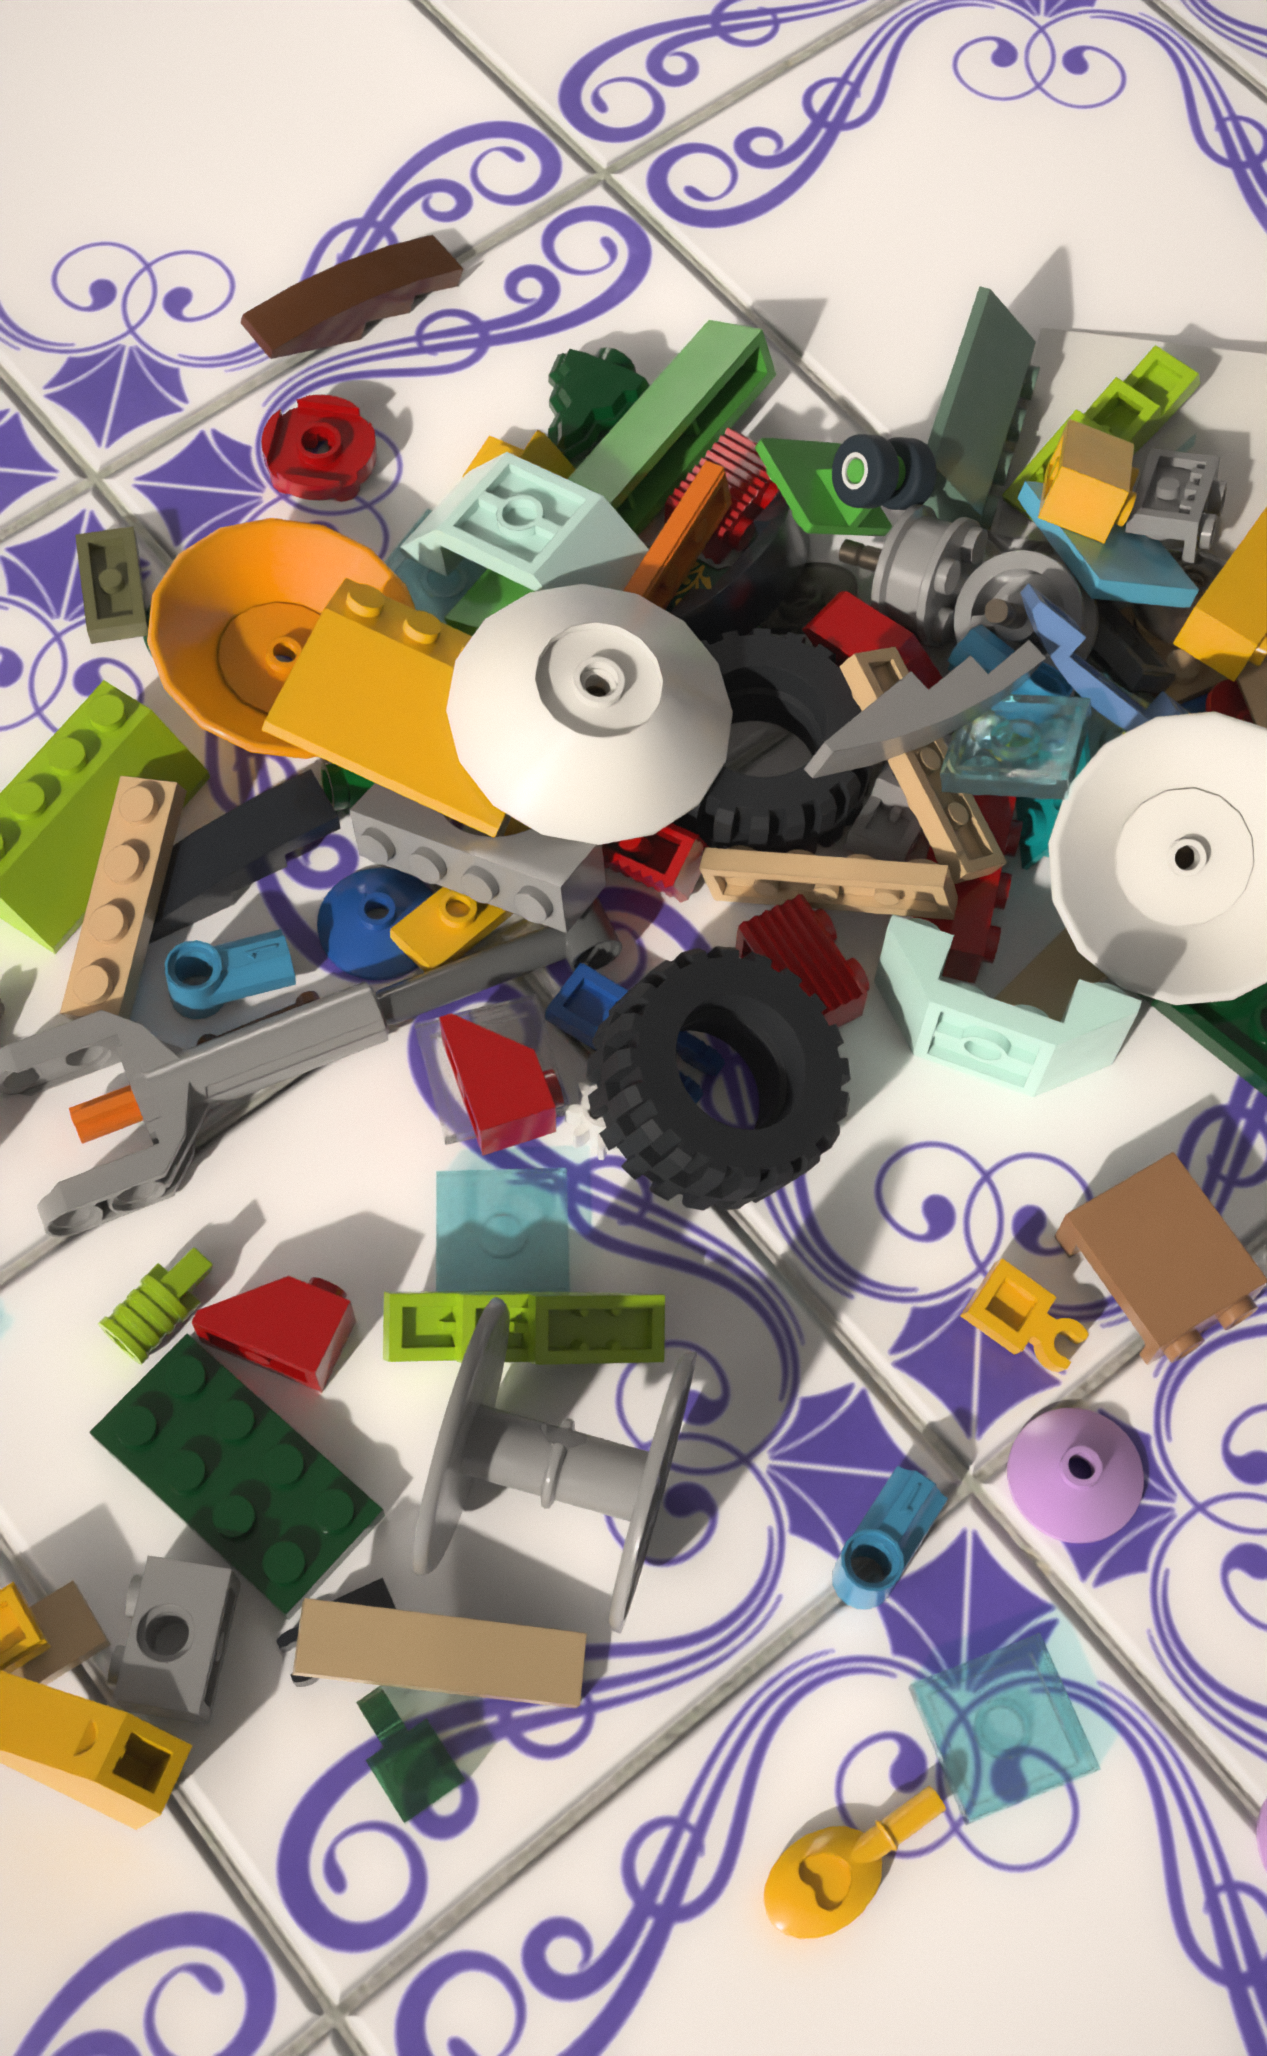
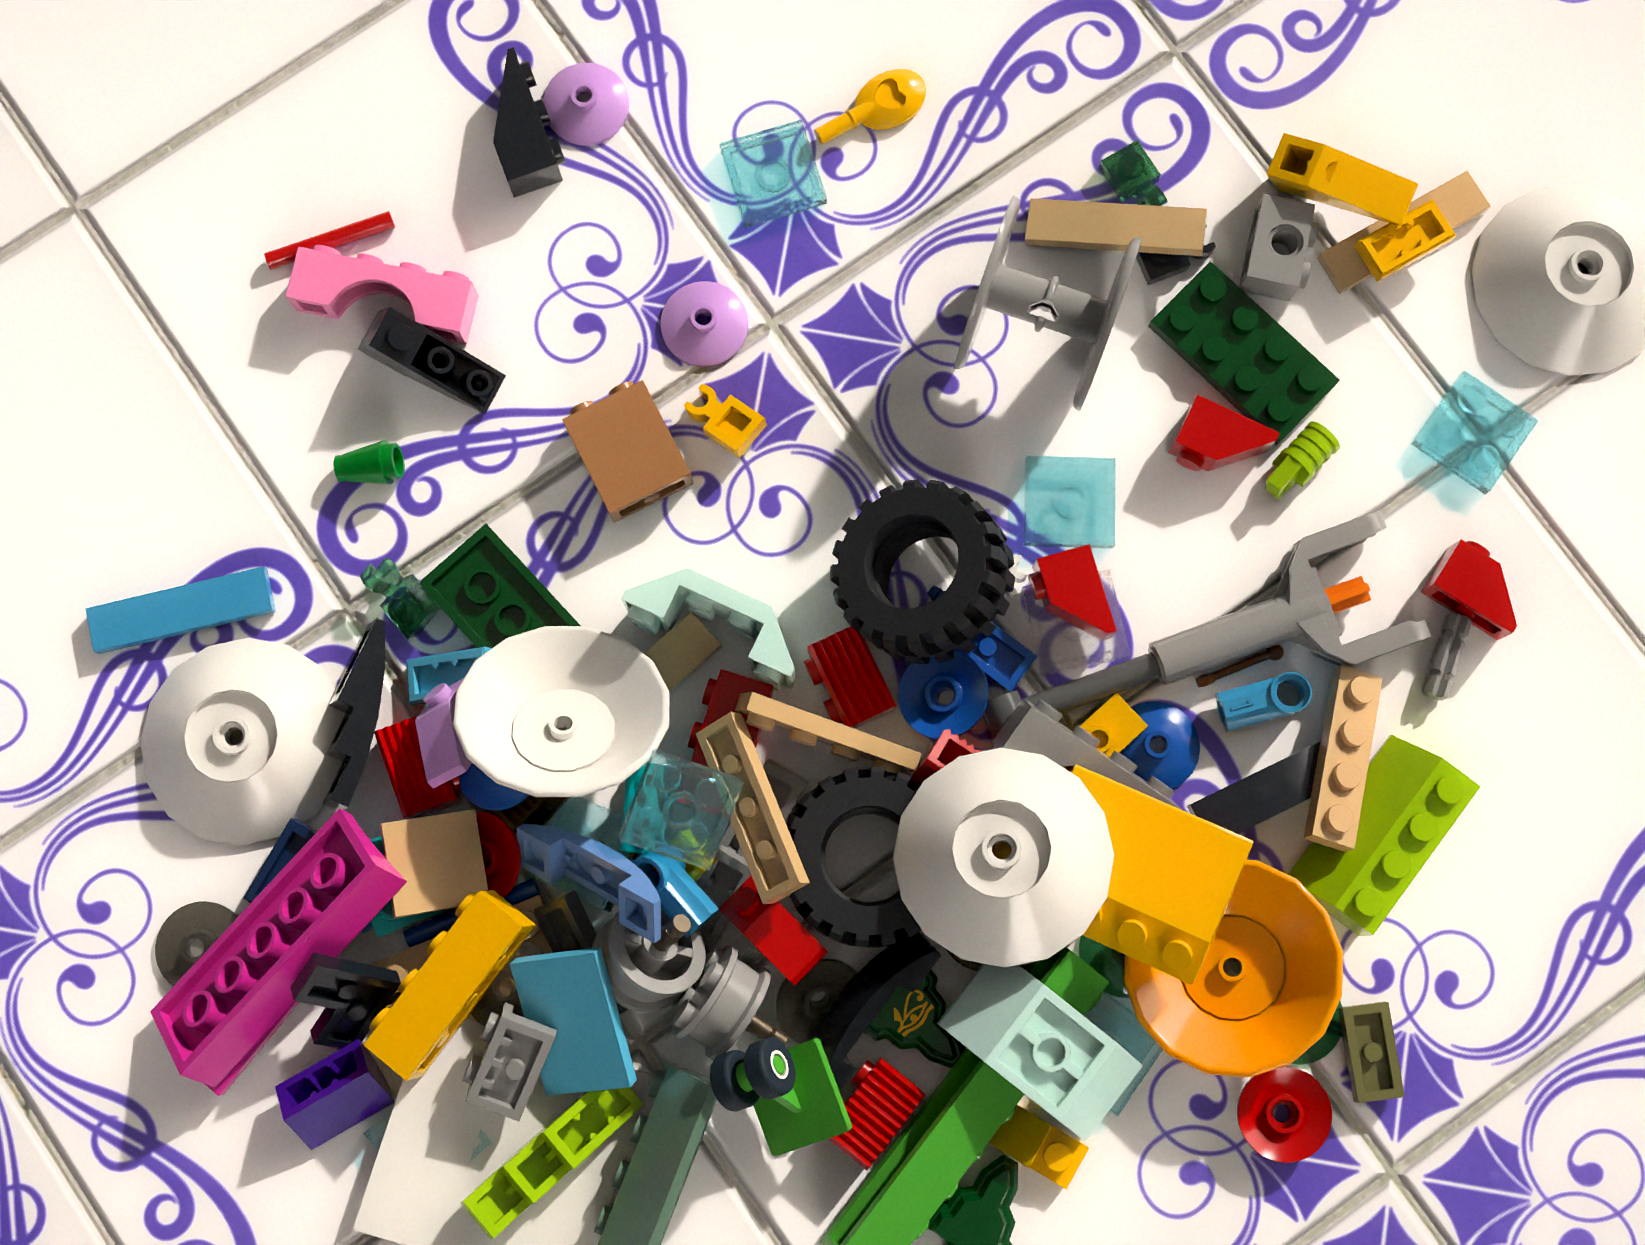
camera: 175 degrees left, 15 degrees up
(220, 497) = (1307, 1118): none -> red dish
(325, 475) = (1223, 1207): red plate -> none
(542, 1327) = (1044, 429): lime slope -> none
(666, 928) = (921, 690): none -> blue dish
(683, 537) = (922, 1030): orange tile -> none
(889, 1536) = (830, 284): dark azure piece -> none
(914, 716) = (768, 813): light grey slope -> none
(1089, 482) = (582, 1070): yellow brick -> none

